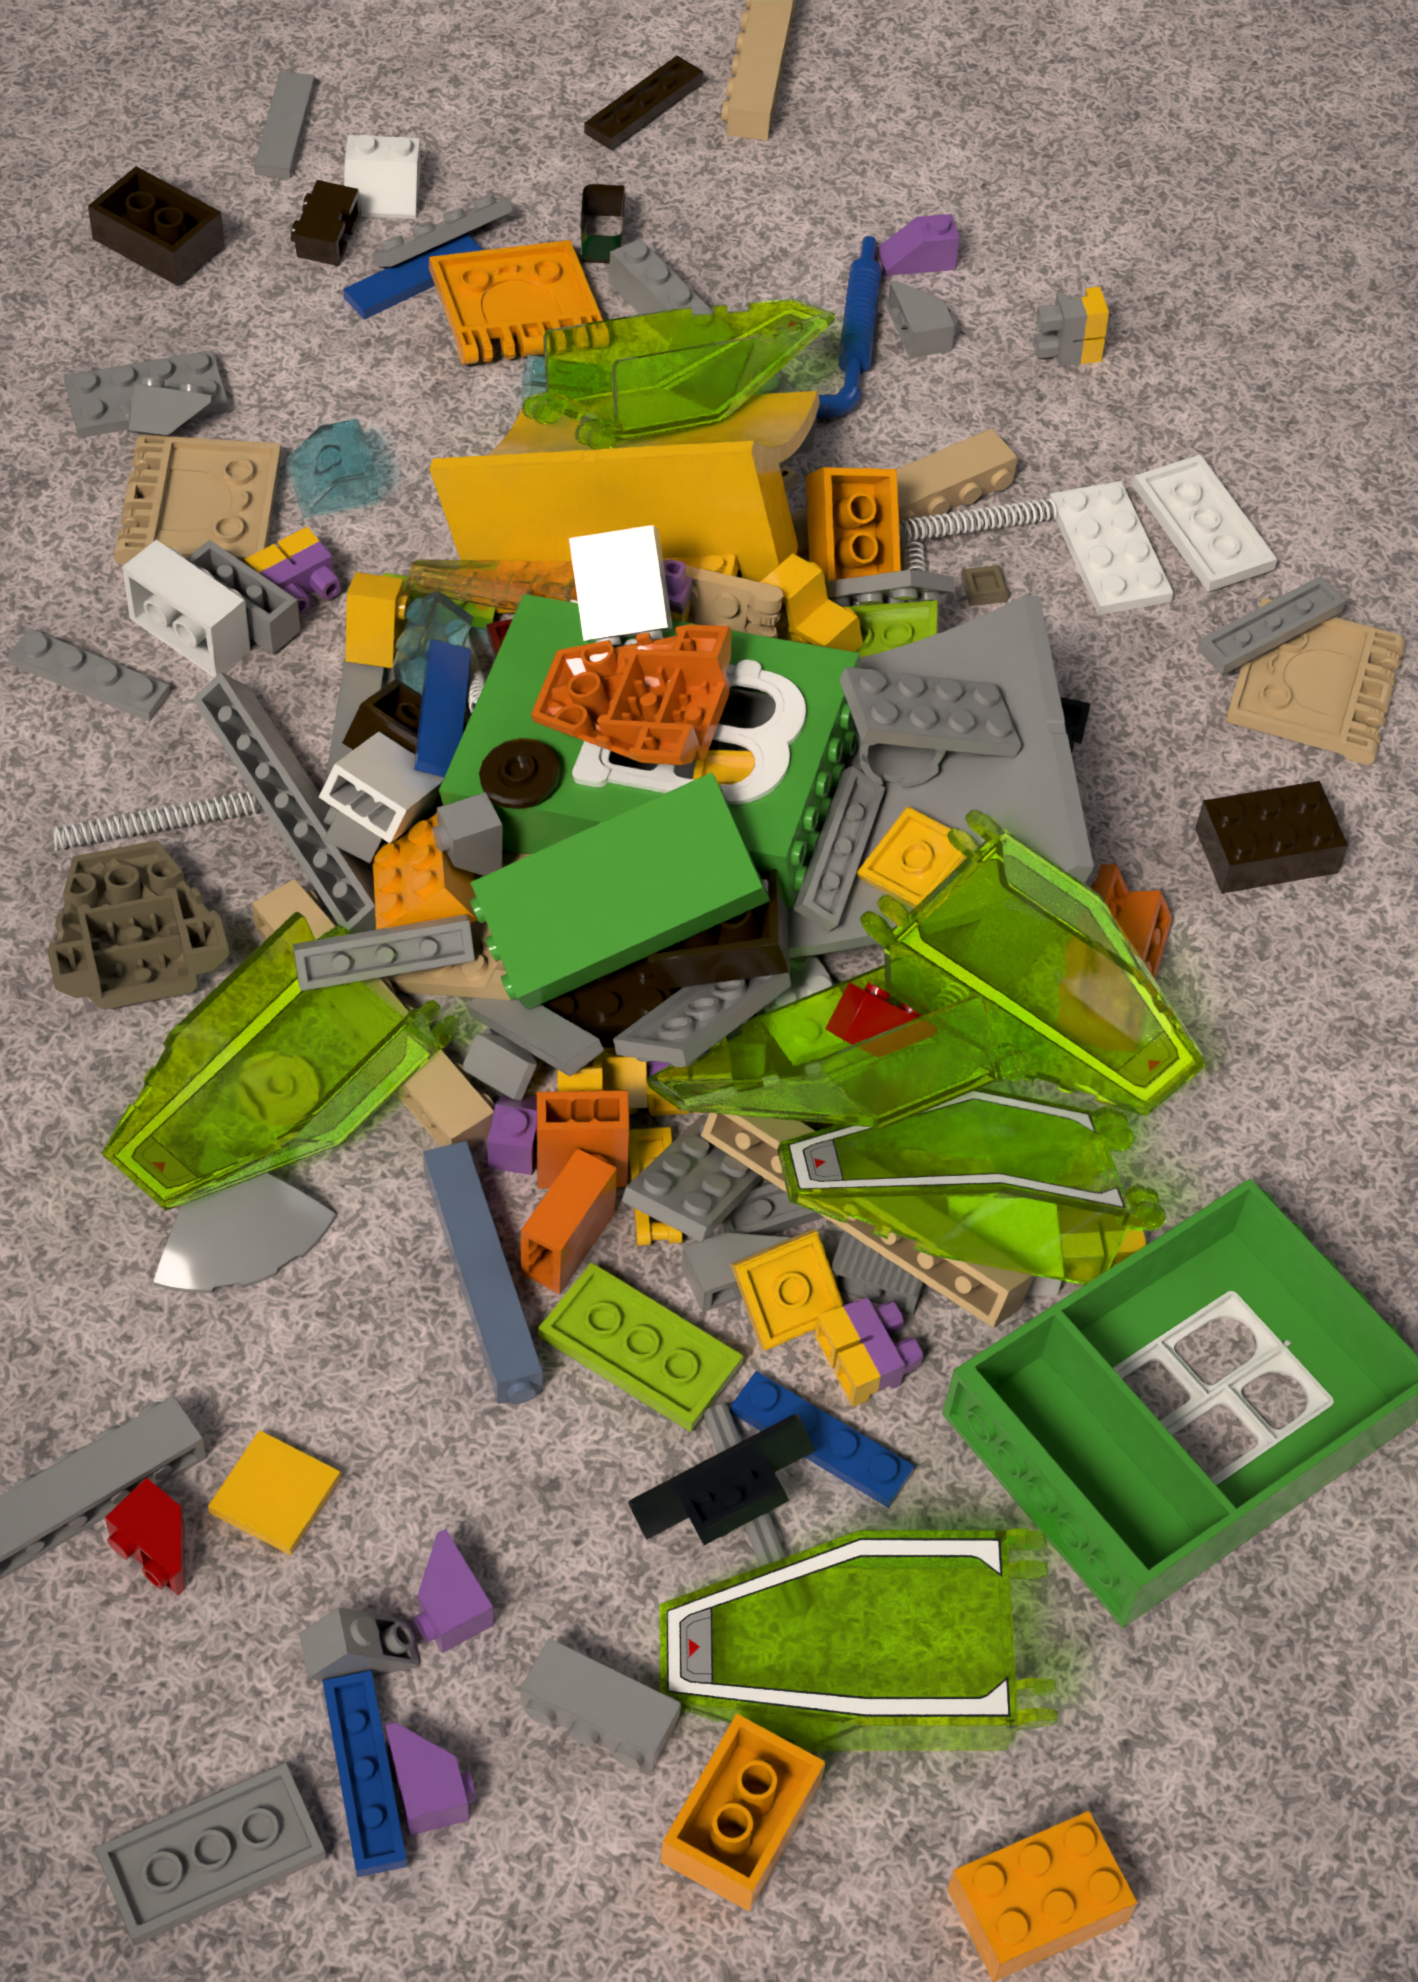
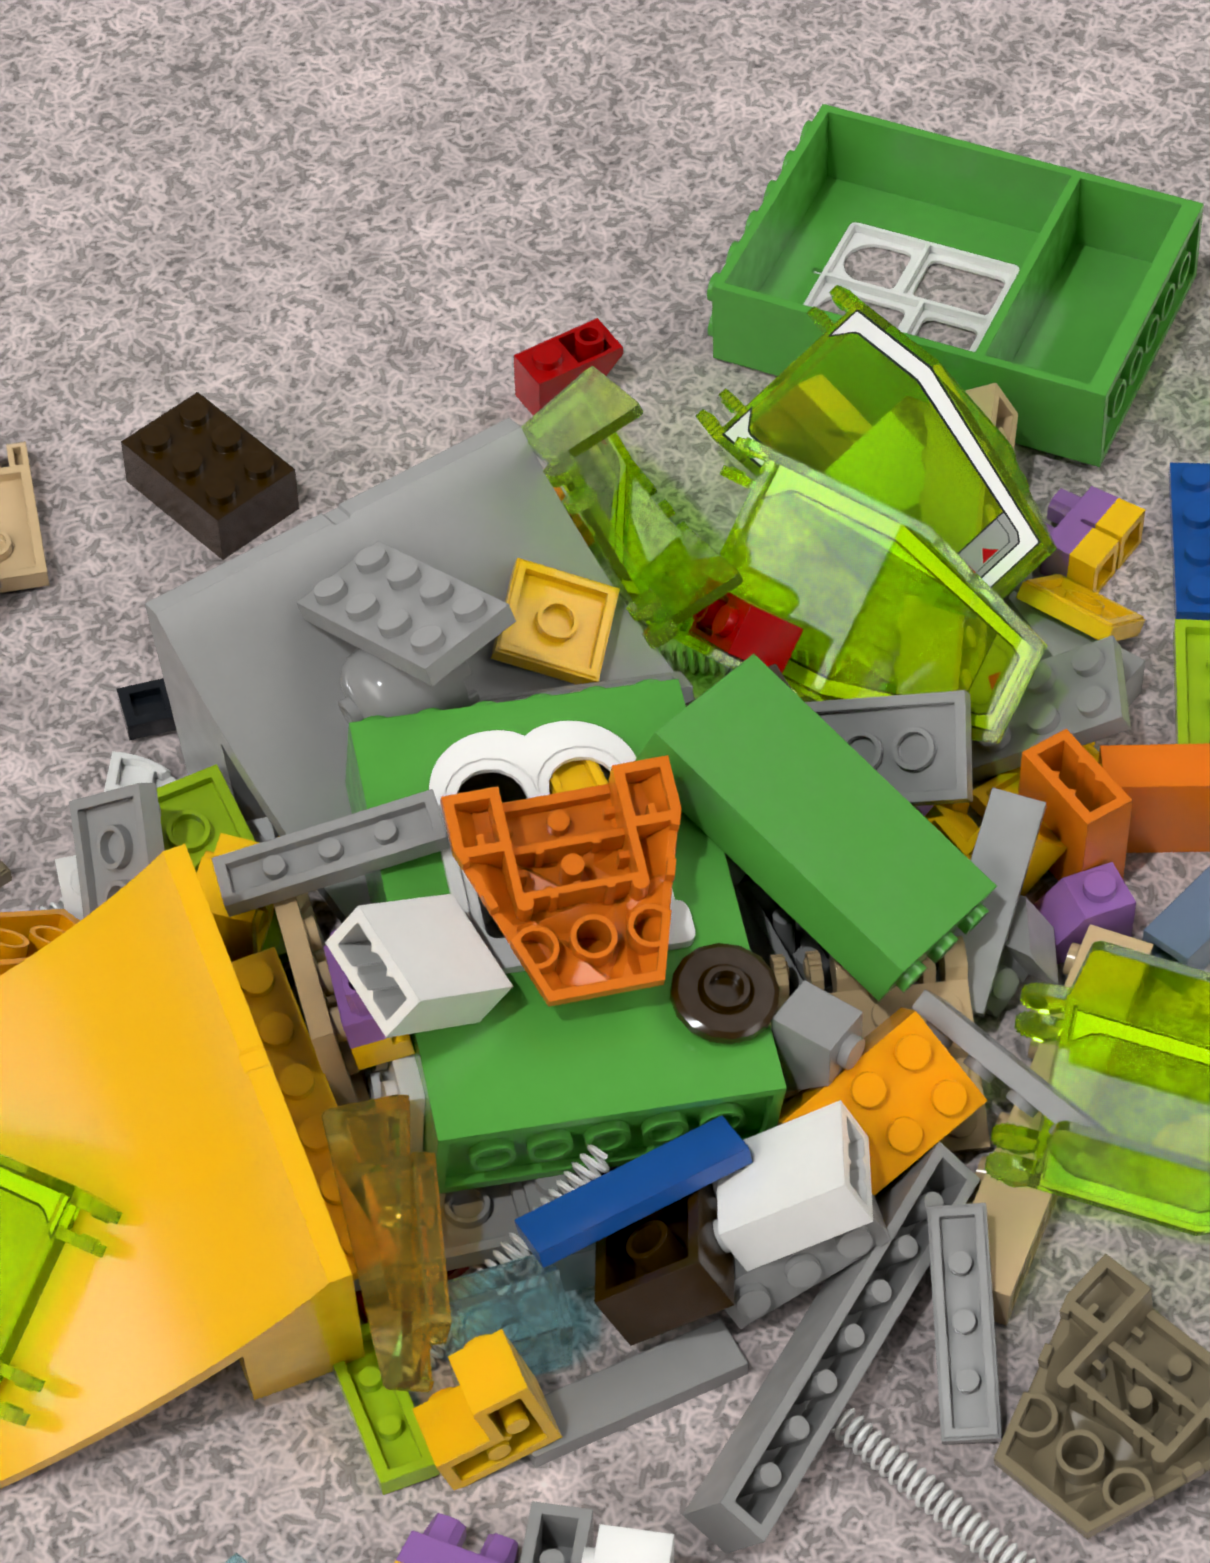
camera: 115 degrees left, 5 degrees down
(256, 873) = (964, 1324): none -> light grey tile
(758, 598) = (330, 853): none -> light grey plate
(1256, 1092) = (553, 364): none -> red slope

